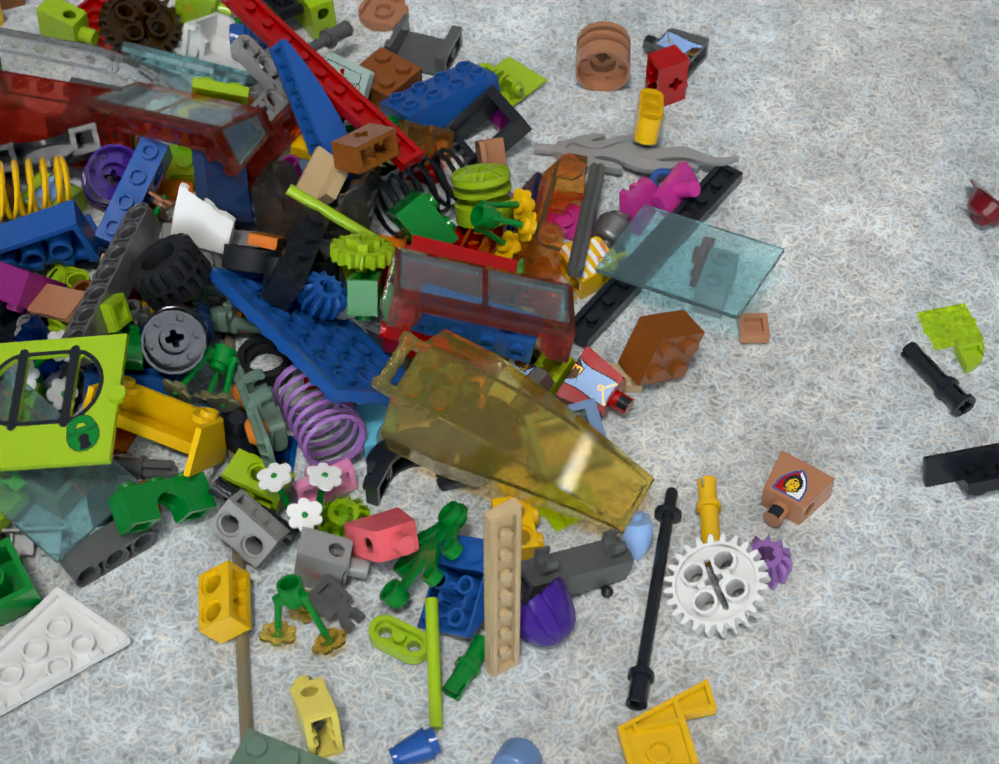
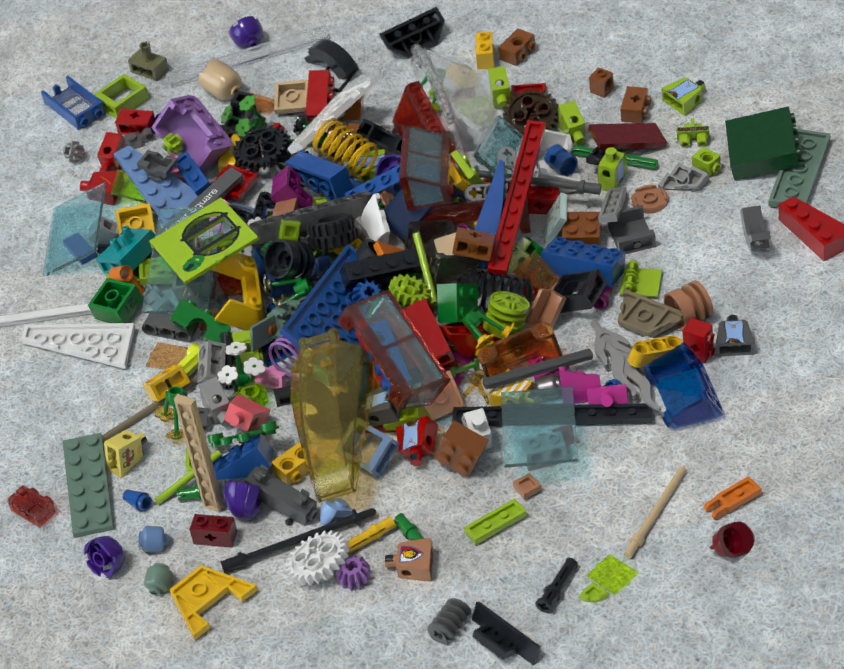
camera: 65 degrees right, 5 degrees down
(156, 583) = (166, 355): none -> clear orange piece
(201, 548) = (190, 362): none -> neon yellow piece
(380, 35) = (612, 205): none -> light grey tile
(564, 680) = (213, 530): none -> dark red brick
(571, 100) = (646, 315): none -> dark tan wing
(623, 312) = (478, 423): none -> white torso
(724, 125) = (684, 388): none -> clear blue windscreen
(738, 471) = (409, 530): none -> green pin
(788, 384) = (495, 521): none -> lime plate
(914, 276) = (638, 538): none -> tan bar
(916, 172) = (733, 497): none -> orange hinge
(926, 504) = (448, 620): none -> dark grey piece

